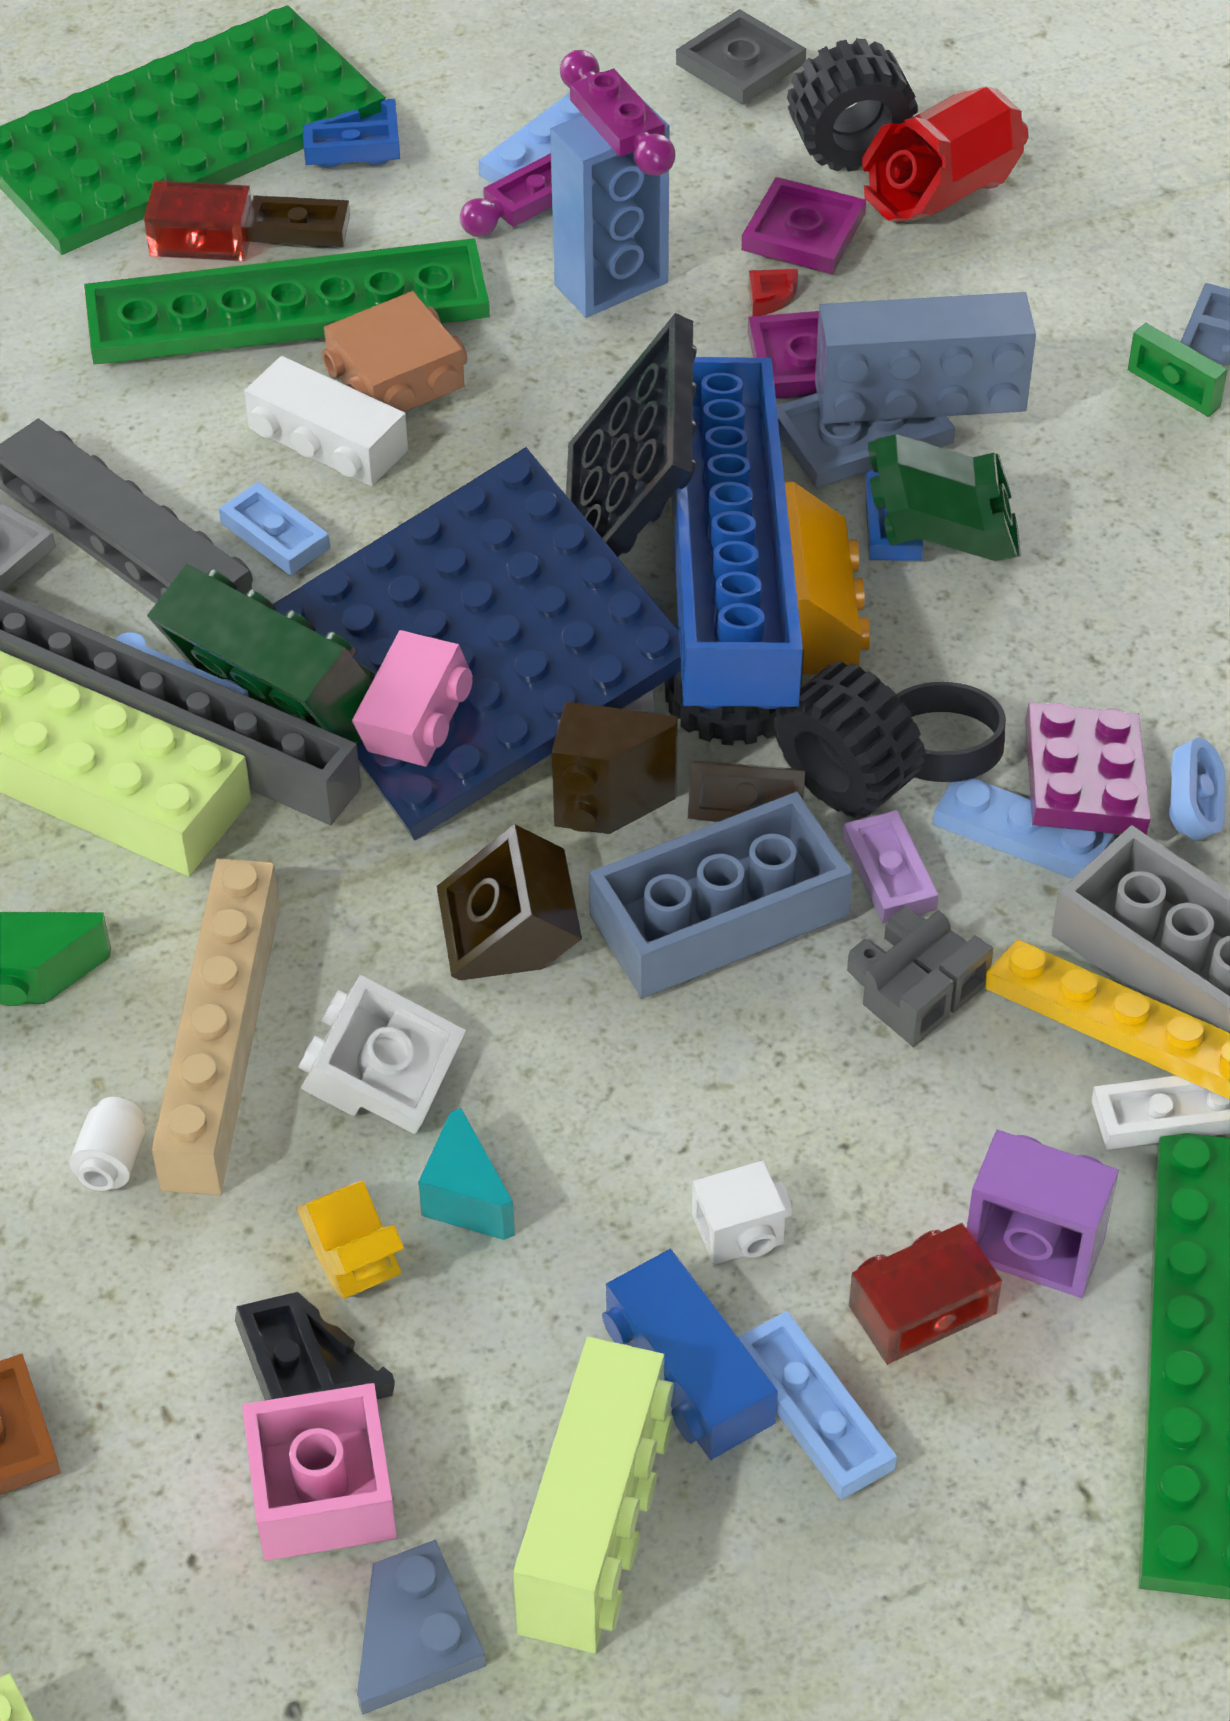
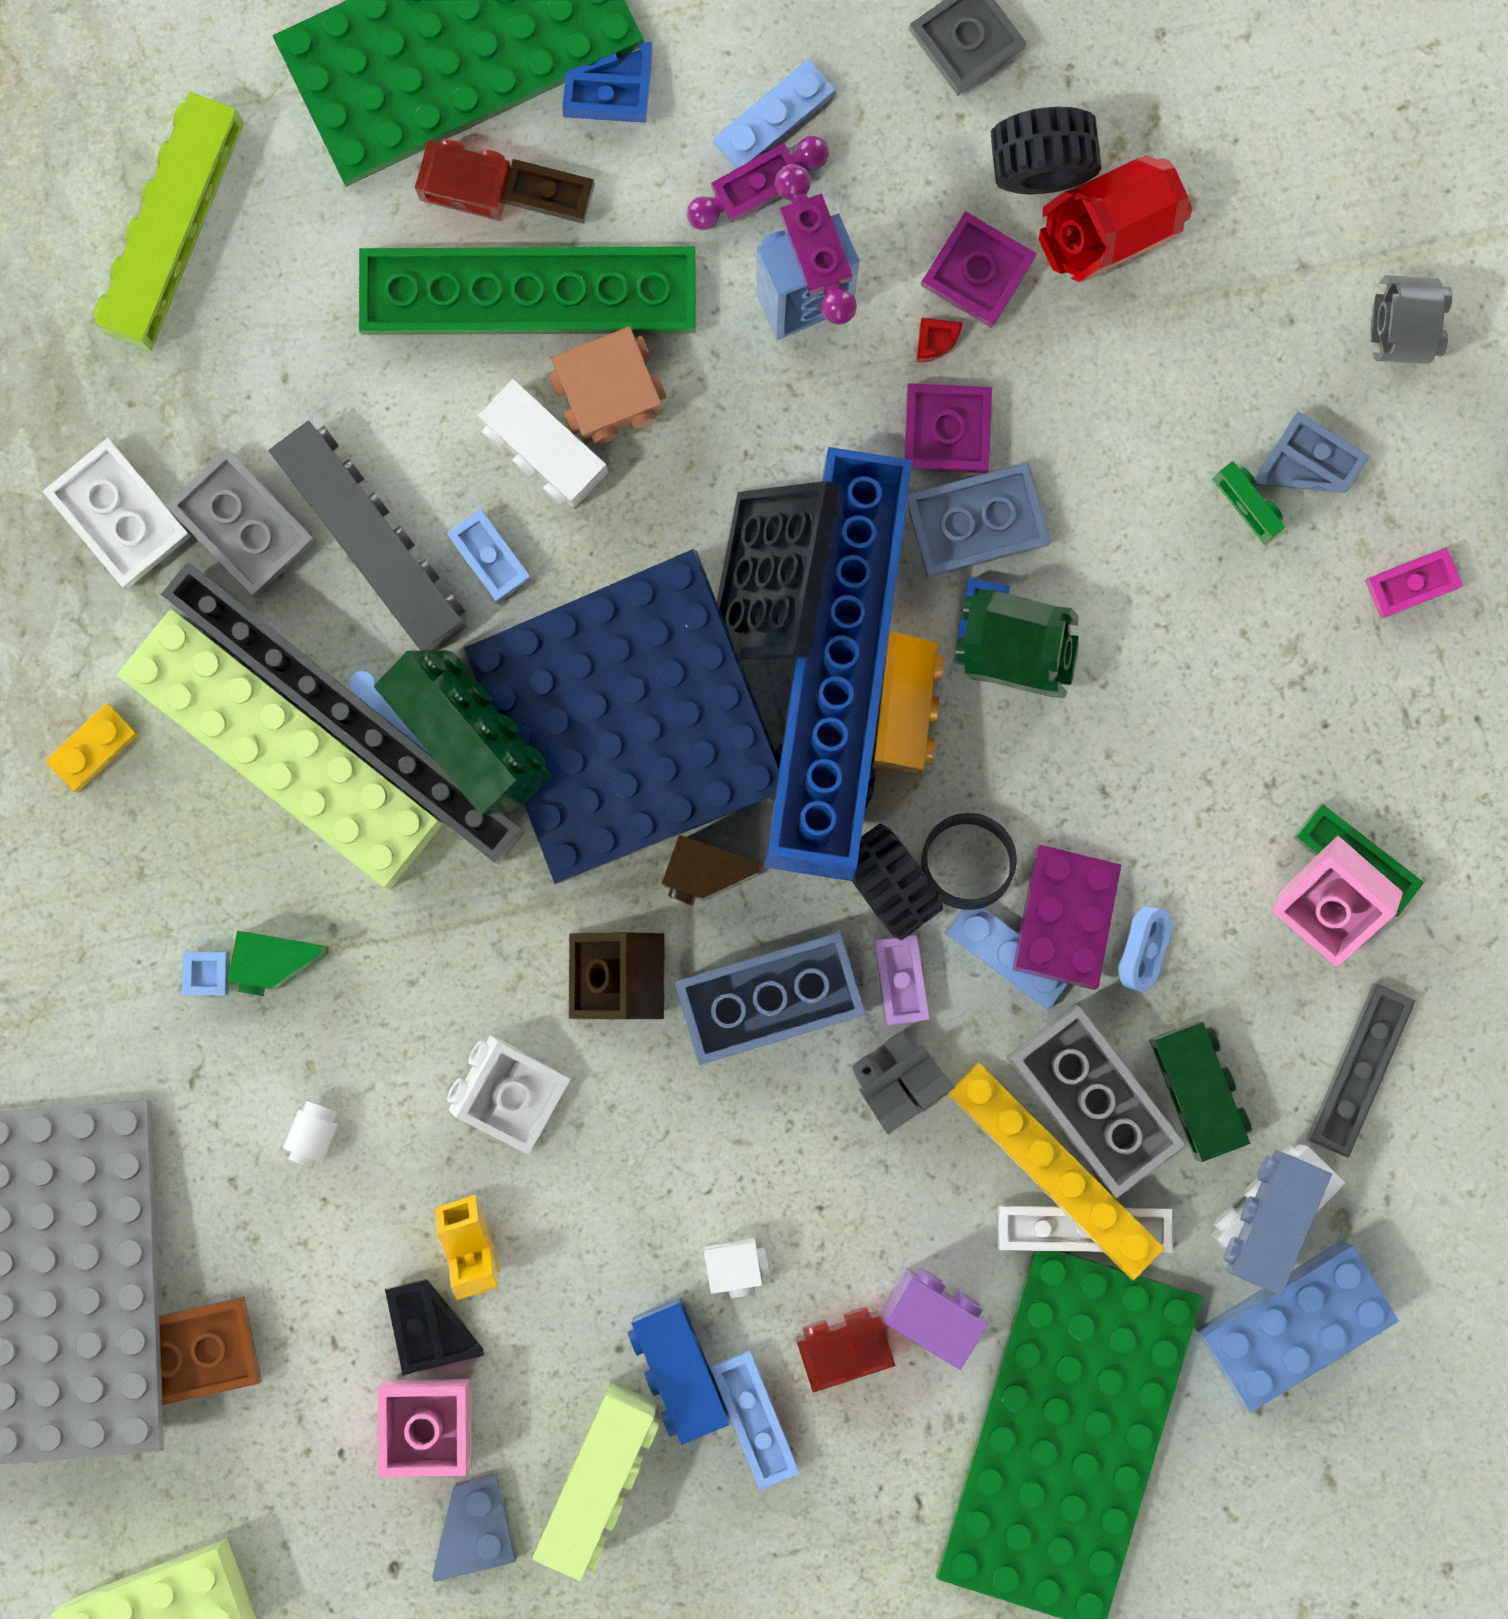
camera: 10 degrees right, 35 degrees up
(216, 1028) = (395, 1048): tan brick -> none
(413, 698) = (570, 791): bright pink brick -> none
(462, 1184) = (550, 1208): teal slope -> none
(731, 789) = (810, 897): dark brown plate -> none
(924, 357) = (1035, 495): sand blue brick -> none

